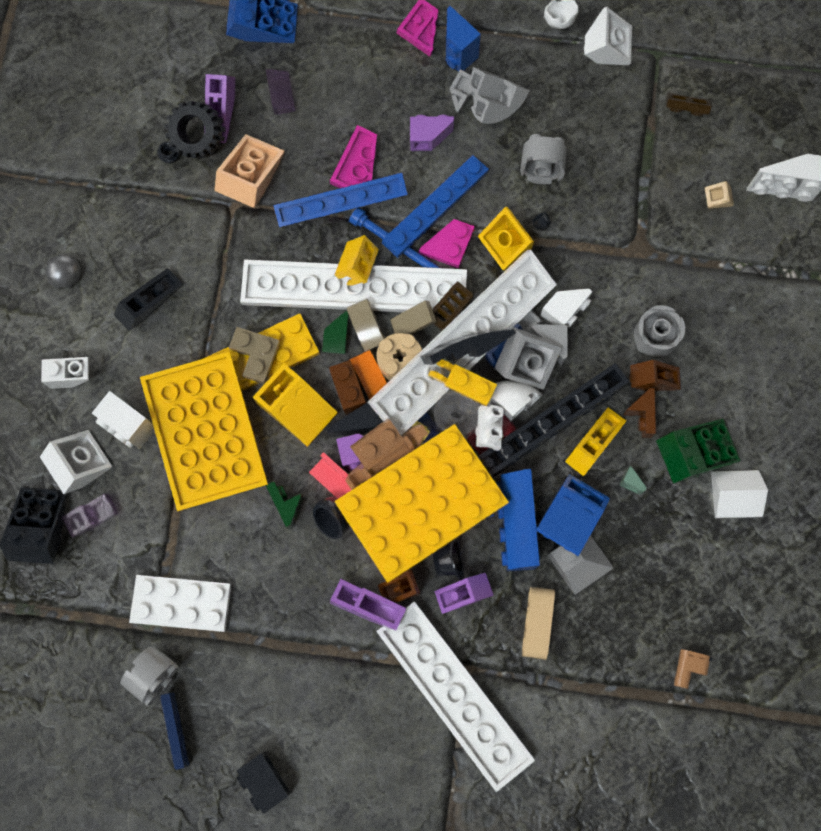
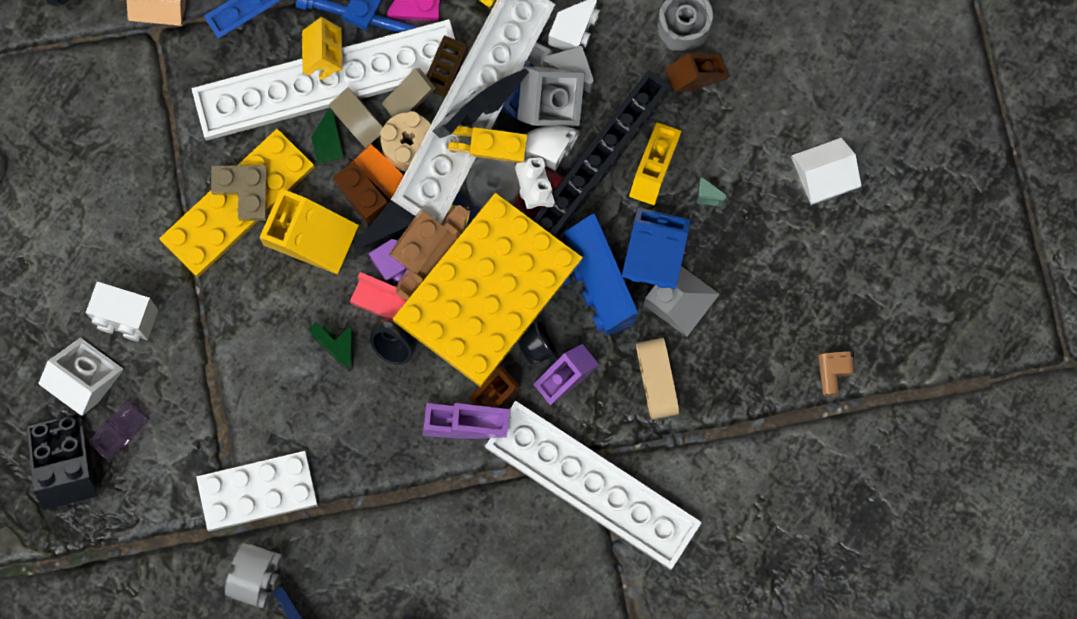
camera: 25 degrees left, 0 degrees up
(65, 372) = (33, 280): white slope -> none
(147, 299) = (95, 168): black slope -> none
(203, 431) = (216, 293): yellow plate -> none
(646, 409) = (697, 109): reddish brown slope -> none
(697, 450) = (768, 137): dark green slope -> none

